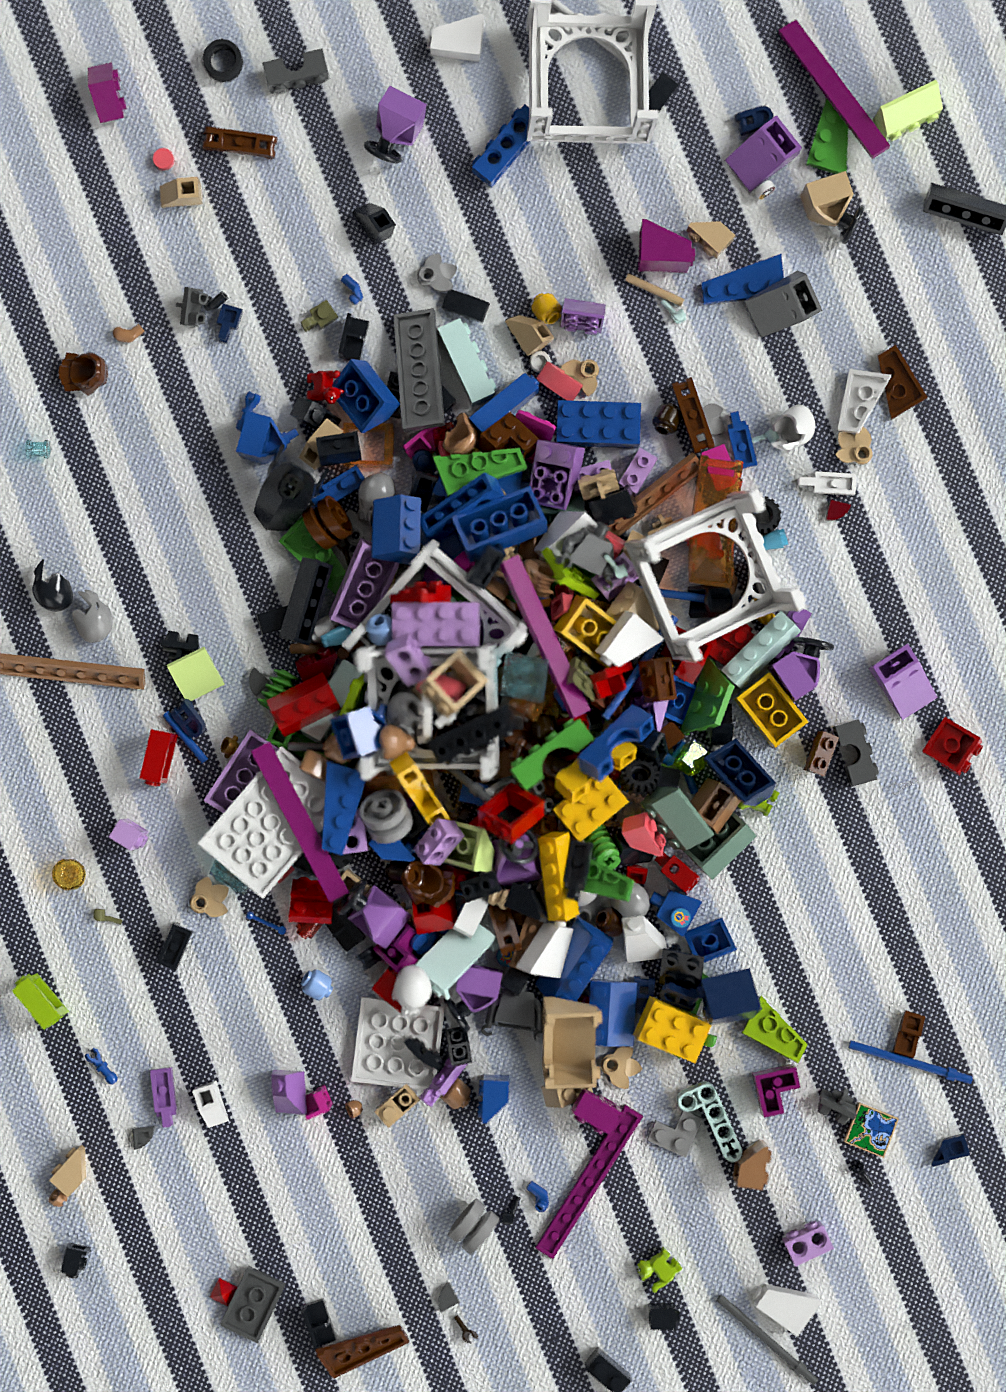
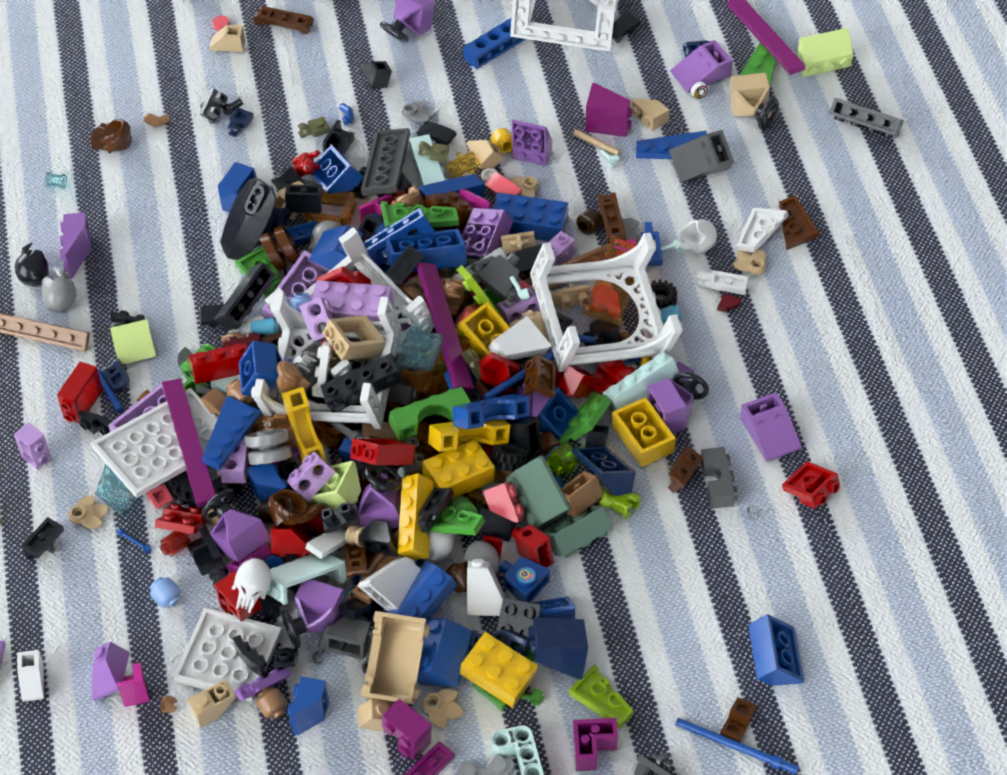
camera: 10 degrees right, 35 degrees down
(91, 547) = (75, 241): none -> medium lavender slope
(181, 787) = (94, 422): none -> black slope
(477, 348) = (437, 152): none -> olive plate
(507, 357) = (462, 164): none -> clear yellow hips
(937, 955) = (775, 651): none -> blue slope

